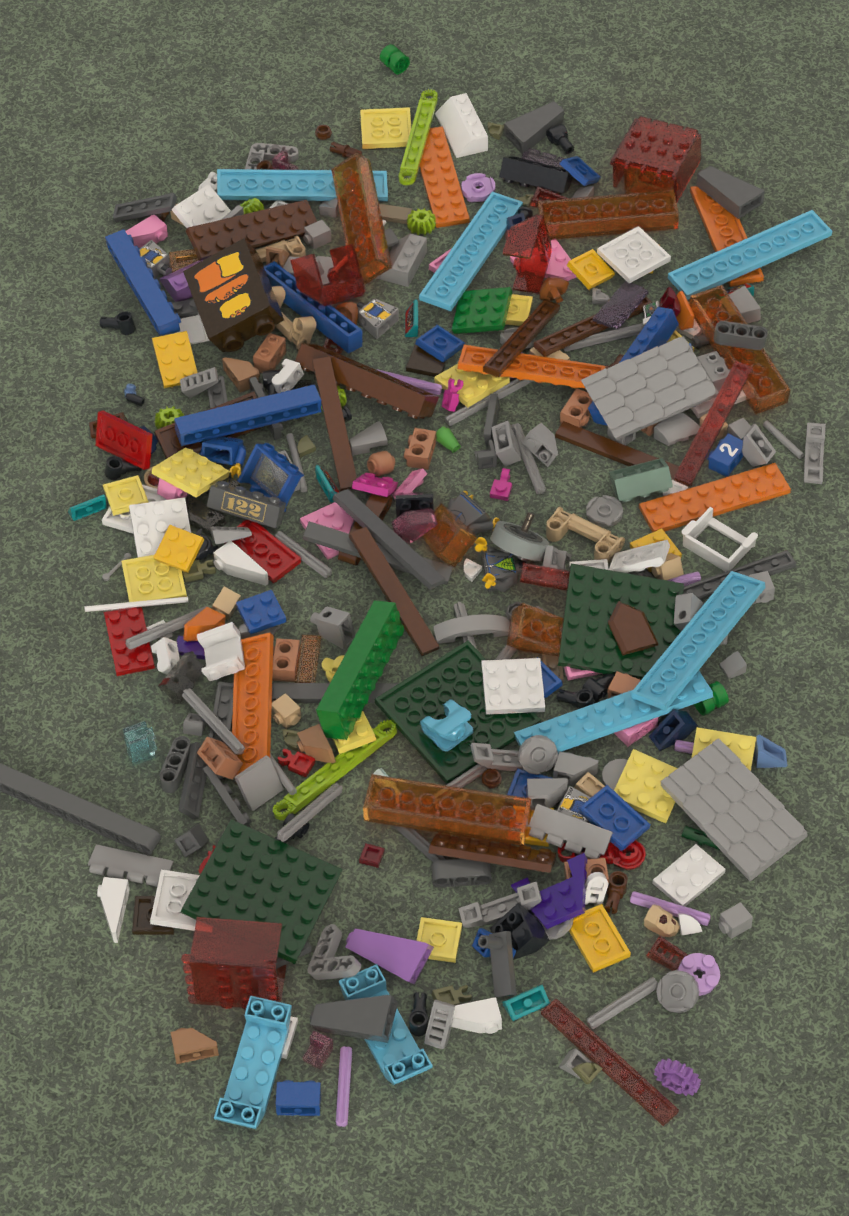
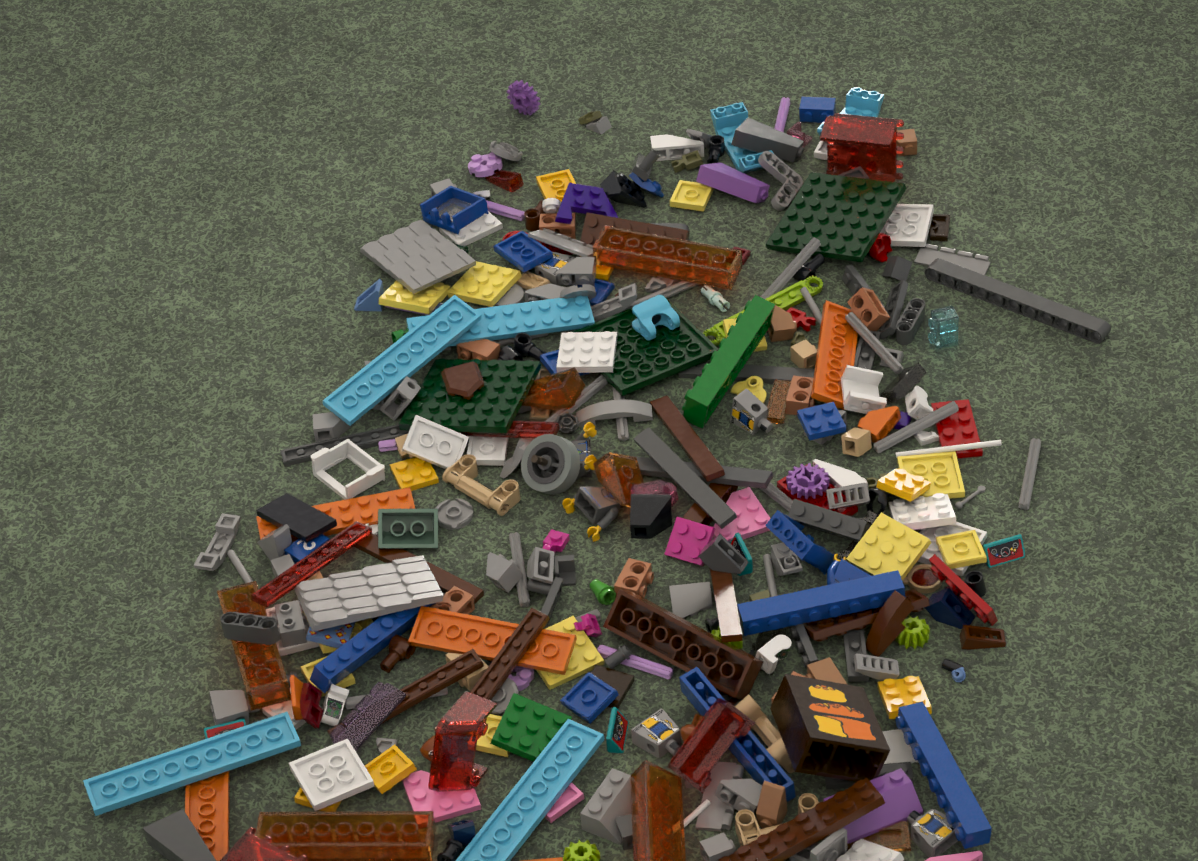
camera: 170 degrees left, 10 degrees down
(58, 595) = (1029, 475): none -> light grey axle
(114, 898) = (966, 230): white slope -> none
(122, 322) = (973, 754): black pin -> none
(185, 405) = (888, 623): none -> reddish brown slope
(259, 783) = (835, 292): light grey tile -> none
(267, 380) = (791, 664): black pin -> none
(270, 546) = (807, 481): none -> medium lavender gear
(341, 458) = (722, 556): none -> dark grey slope
(381, 463) = (679, 568): nougat head -> none
(411, 482) = (652, 546): bright pink plate -> none
(420, 374) = (618, 656): none -> dark grey pin
(489, 913) = (638, 213): light grey slope -> none
(526, 1002) = (624, 161): teal slope -> none
(610, 1061) = (575, 127): clear red tile -> none
(622, 1003) = (550, 154): light grey axle -> none
(661, 922) = (505, 197): tan rock -> none
(709, 879) = (453, 209): none -> blue window
(747, 473) = (303, 520): none -> black tile

